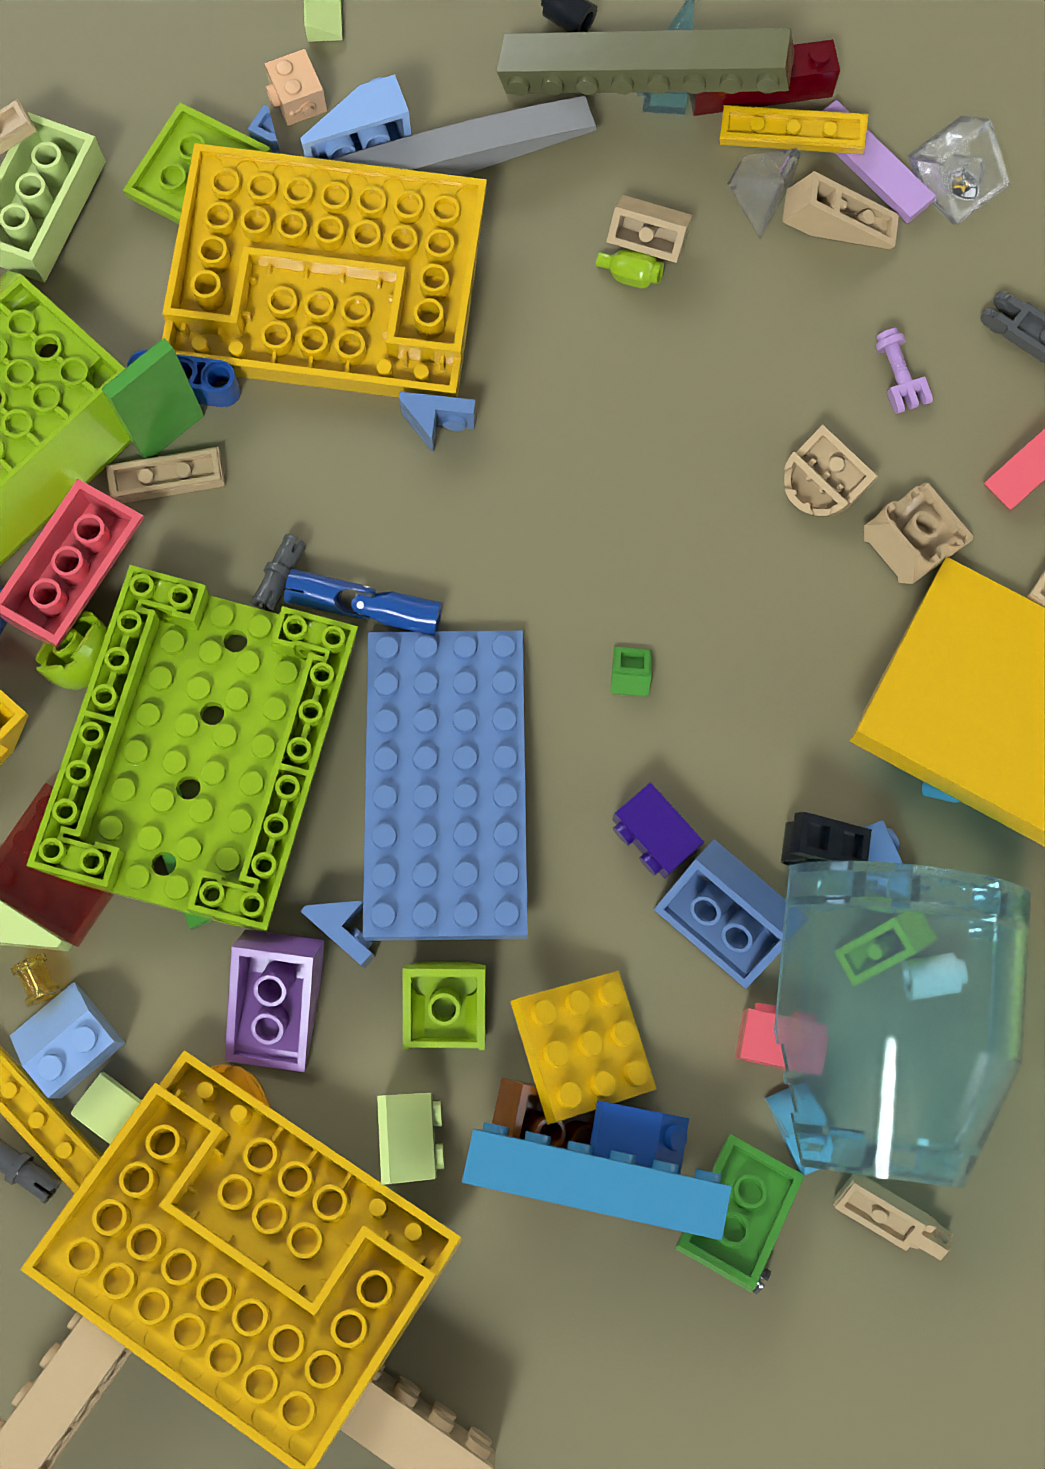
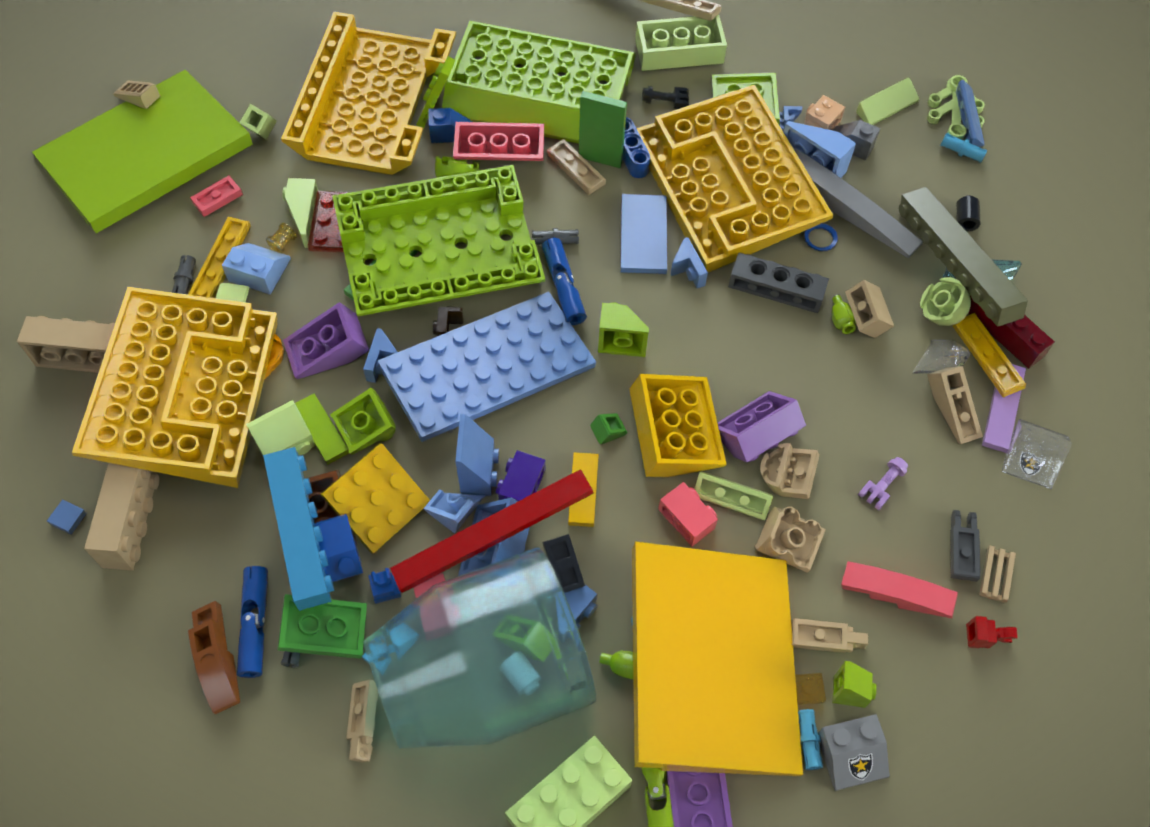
camera: 60 degrees right, 15 degrees down
(128, 262) = (678, 97): none -> black hinge
(340, 813) = (447, 316): none -> dark brown bracket
(343, 447) = (644, 234): none -> medium blue tile
(355, 65) = (862, 134): none -> flat silver slope
(412, 1072) = (322, 429): none -> lime tile
(501, 201) = (821, 226): none -> blue piece
(501, 358) = (767, 283): none -> dark grey brick
(502, 569) = (621, 331): none -> lime slope
(600, 877) = (475, 458): none -> medium blue slope
(648, 941) = (452, 508): none -> light blue slope
(684, 580) = (676, 425): none -> yellow slope
(696, 128) = (946, 302): none -> yellowish green cylinder
(697, 1317) = (251, 633): none -> blue piece
(705, 1390) = (212, 660): none -> dark orange slope
(707, 754) = (583, 512): none -> yellow tile
(714, 1097) = (383, 586): none -> blue piece
(735, 912) = (491, 531): none -> red tile
(739, 474) = (760, 425): none -> medium lavender slope
(816, 567) = (733, 495): none -> yellowish green slope
(820, 639) = (688, 513): none -> coral brick
(982, 839) = (620, 663): none -> lime plant

